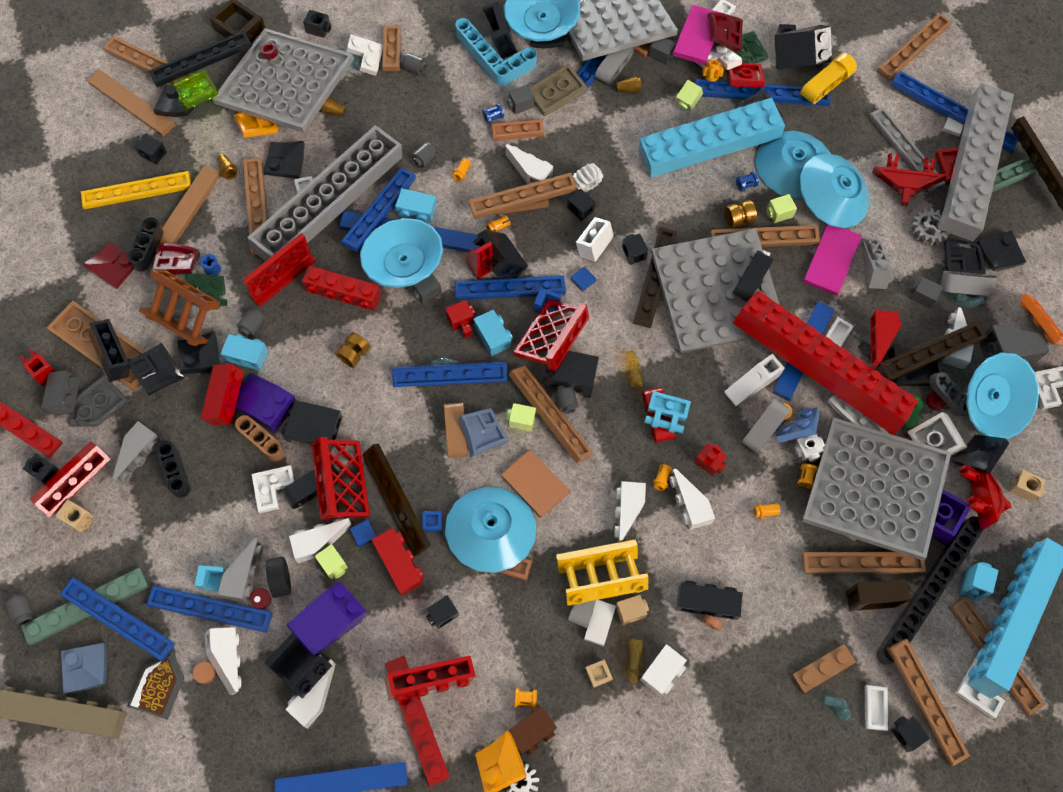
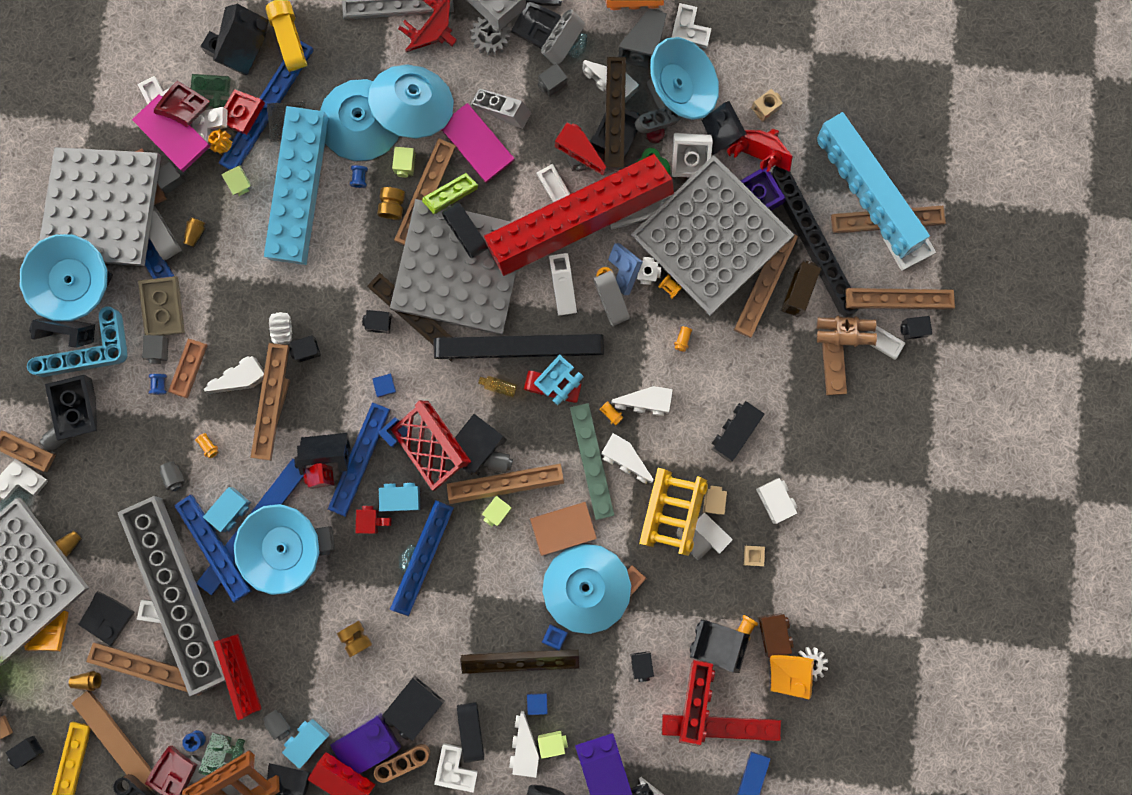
camera: 65 degrees left, 15 degrees up
(325, 483) = (474, 720): red fence -> none
(341, 288) = (282, 622): red brick -> none
(398, 561) = (578, 684): red brick -> none
(445, 60) = (72, 406): none -> black slope
(454, 434) = (479, 577): medium nougat beam -> none
(482, 431) = (493, 554): sand blue plate -> none
(496, 677) = (719, 645): none -> panel
(498, 224) = (286, 439): light orange pin -> none
(595, 239) = (350, 355): white brick -> none
(608, 481) = (592, 461): none -> sand green plate
(634, 659) = (756, 519): clear yellow cylinder -> none
(679, 369) = (518, 346): none -> black beam
(711, 459) = (616, 362): red brick -> none
(712, 622) = (756, 438): nougat tile -> none
(781, 256) = (450, 193): none -> lime tile
(791, 375) = (536, 200): blue tile -> none
(840, 706) = (869, 370): clear light blue arm -> none
(864, 661) = (846, 331): none -> medium nougat pin
(978, 581) = (827, 199): medium azure brick -> none

